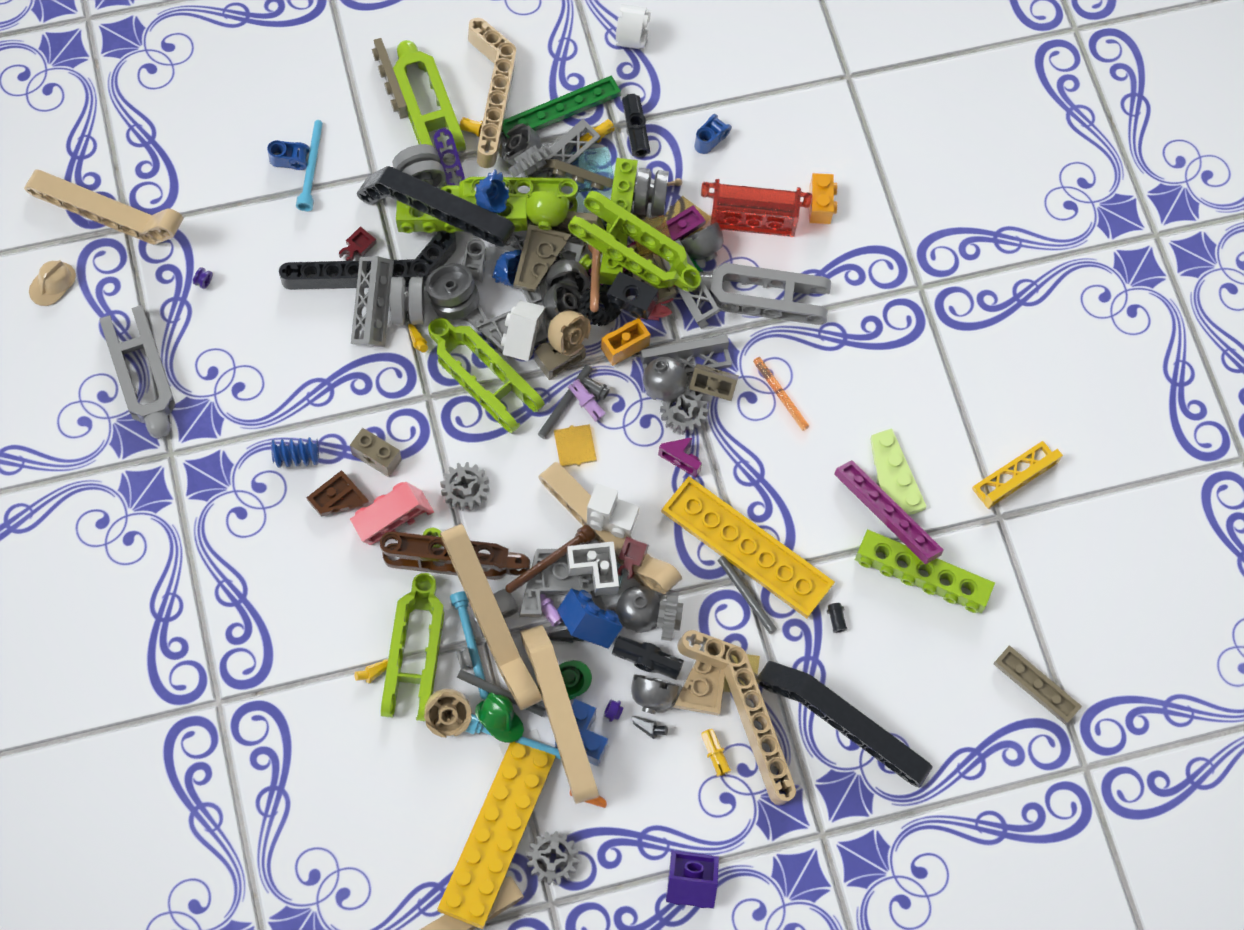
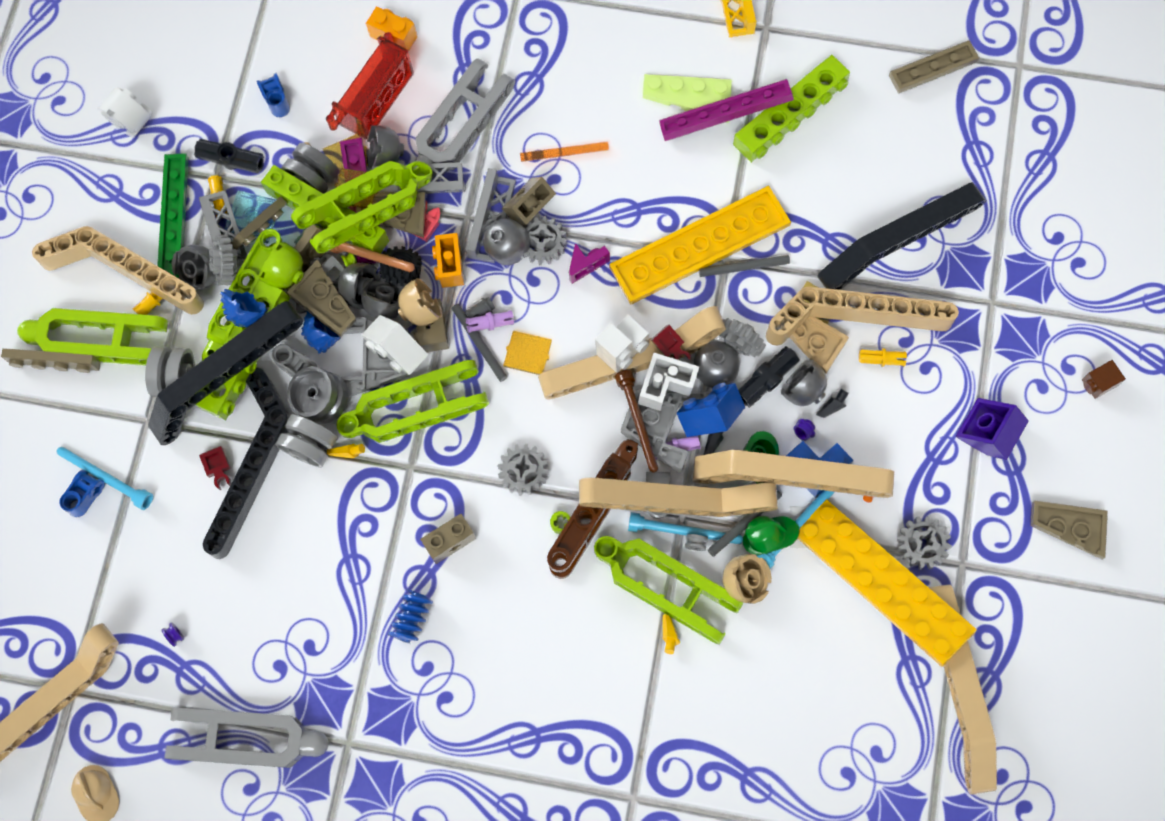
camera: 55 degrees left, 5 degrees up
(337, 496) = (475, 594): reddish brown wing -> none
(375, 301) = (291, 472): light grey fence -> none
(390, 511) = (518, 551): coral wedge -> none
(439, 145) = (157, 329): dark purple beam -> none
(627, 286) = (415, 218): black brick -> none
(837, 617) = (801, 199): black pin -> none

